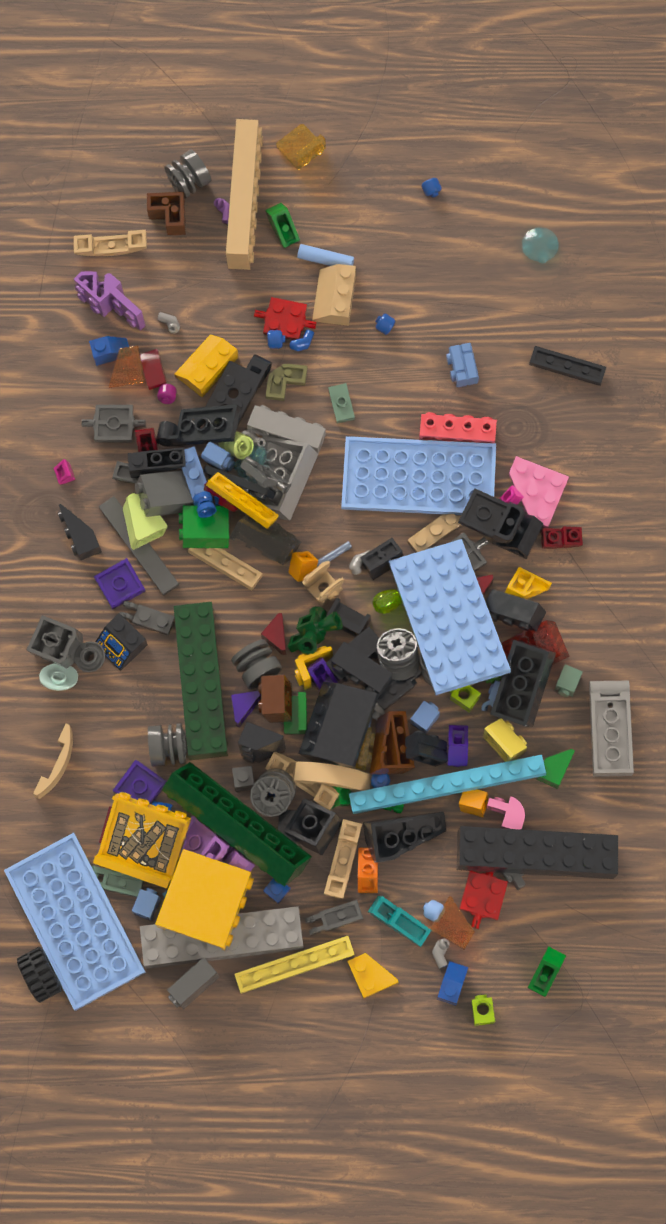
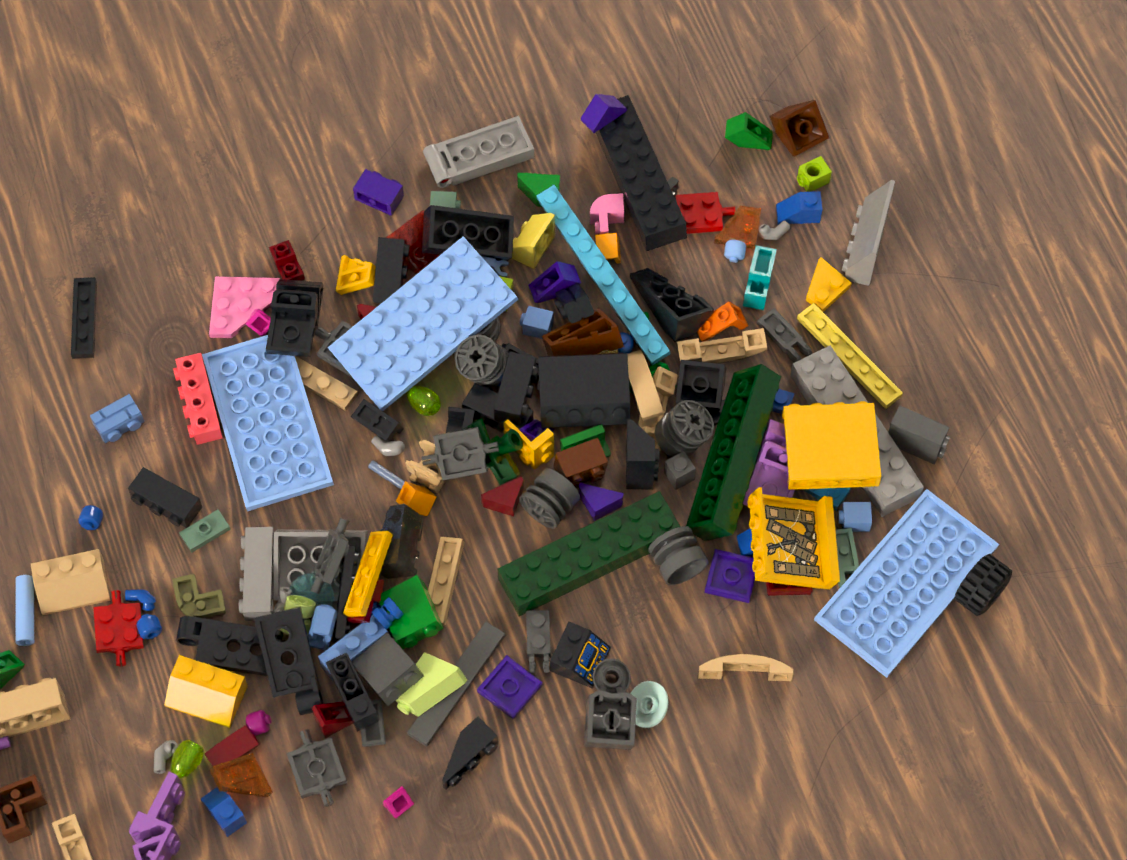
camera: 115 degrees left, 10 degrees down
(158, 335) = (186, 758): none -> clear neon green animal
(313, 600) = (460, 453): none -> dark grey plate
(379, 380) = (164, 498): none -> black brick
(396, 1027) = (868, 235): none -> light grey slope
(536, 1018) = (799, 126): none -> reddish brown slope
(602, 632) = (378, 192): none -> dark purple brick
(603, 841) = (602, 111): none -> dark purple slope

